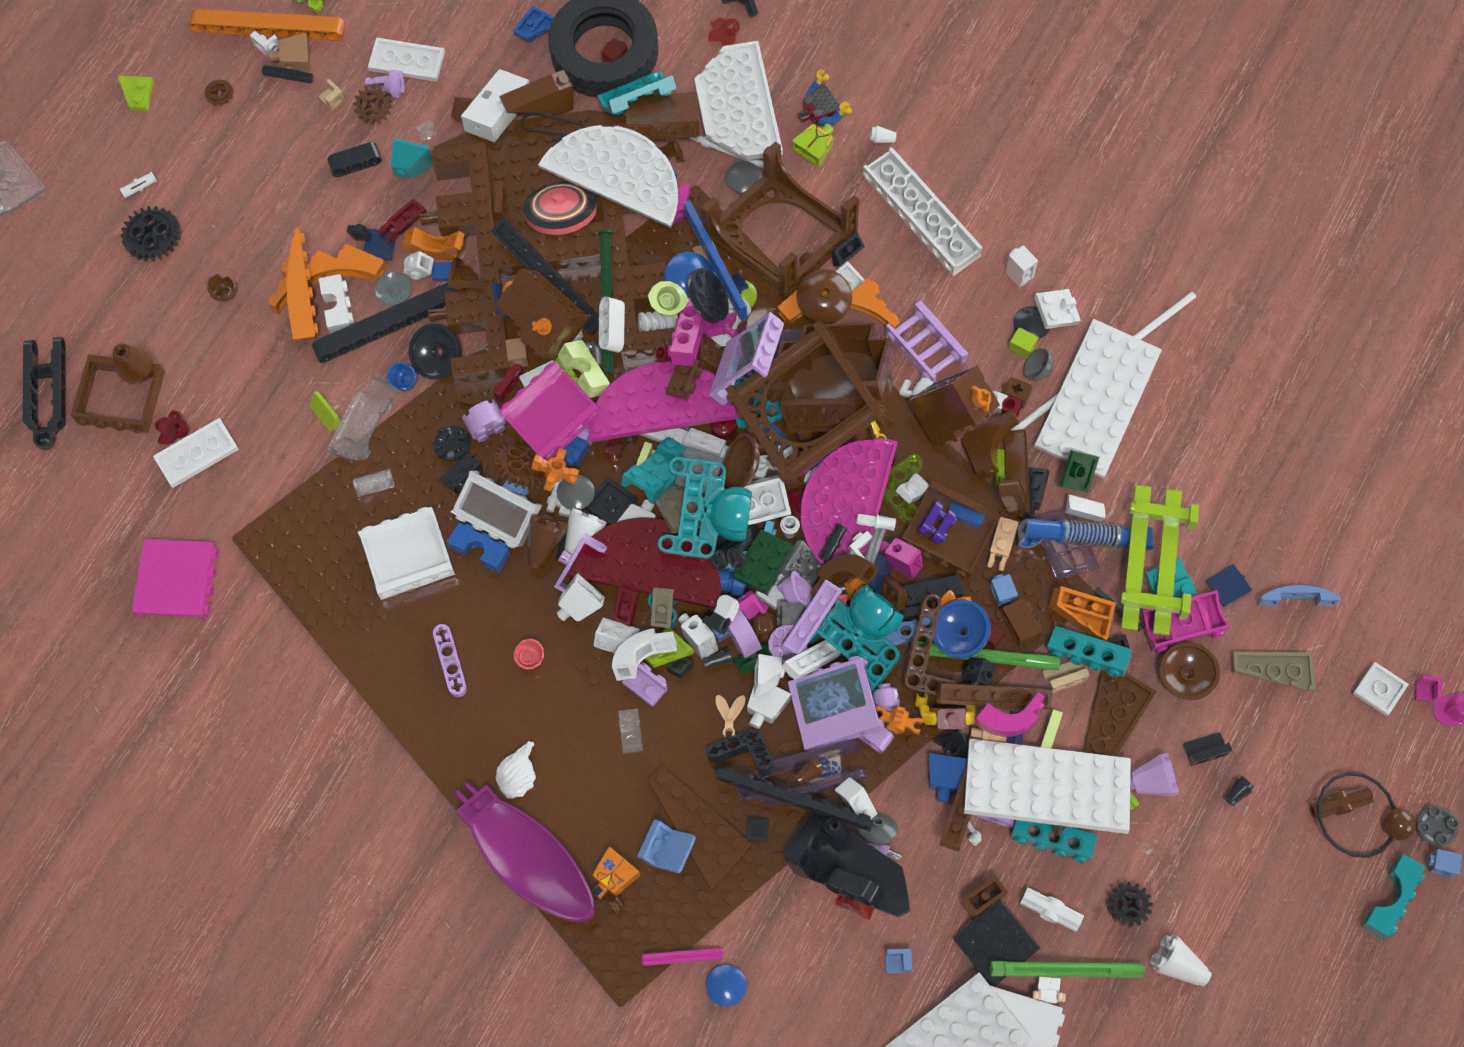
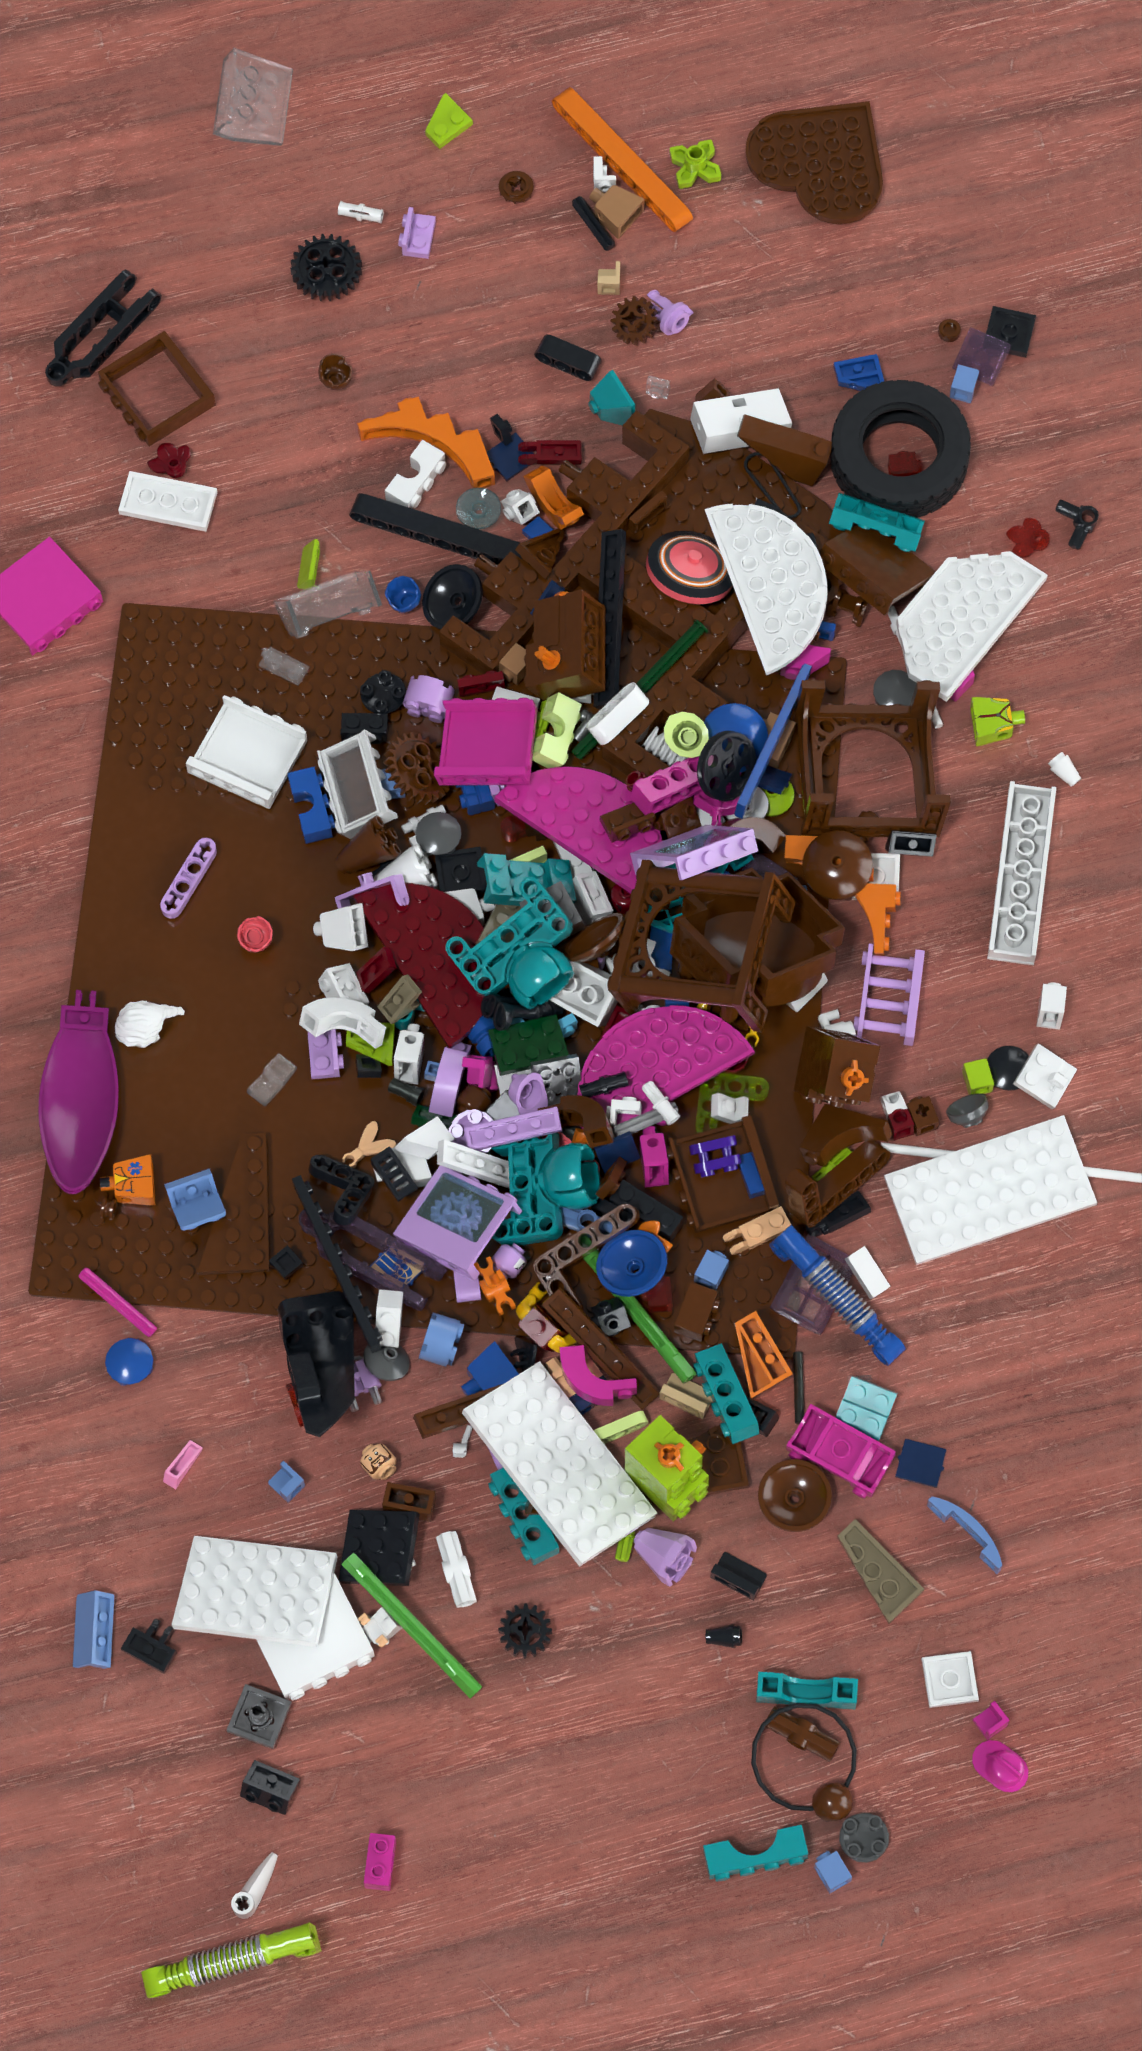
camera: 45 degrees right, 0 degrees up
(132, 363) = (189, 372): reddish brown cone -> none
(188, 168) = (417, 234): none -> lavender bracket
(299, 293) = (391, 436): orange slope -> none
(413, 59) = (711, 304): white plate -> none
(555, 469) = (441, 789): orange pin -> none
(723, 614) = (441, 1054): leg -> none
(770, 706) = (383, 1156): none -> black slope
(789, 526) = (586, 1036): white cone -> none
(810, 771) = (375, 1254): reddish brown cone -> none
(821, 105) = (1039, 688): torso -> none
(825, 1014) = (181, 1464): none -> bright pink piece
(898, 784) = (439, 1340): none -> medium blue brick
(939, 893) = (378, 1461): none -> light nougat head
(1079, 470) = (894, 1233): dark green slope -> none
(1115, 725) = (667, 1468): none -> lime piece
(1163, 602) = (835, 1415): lime fence -> none
(1179, 962) = (512, 1717): white cone -> none
(1318, 774) = (787, 1690): none -> teal arch

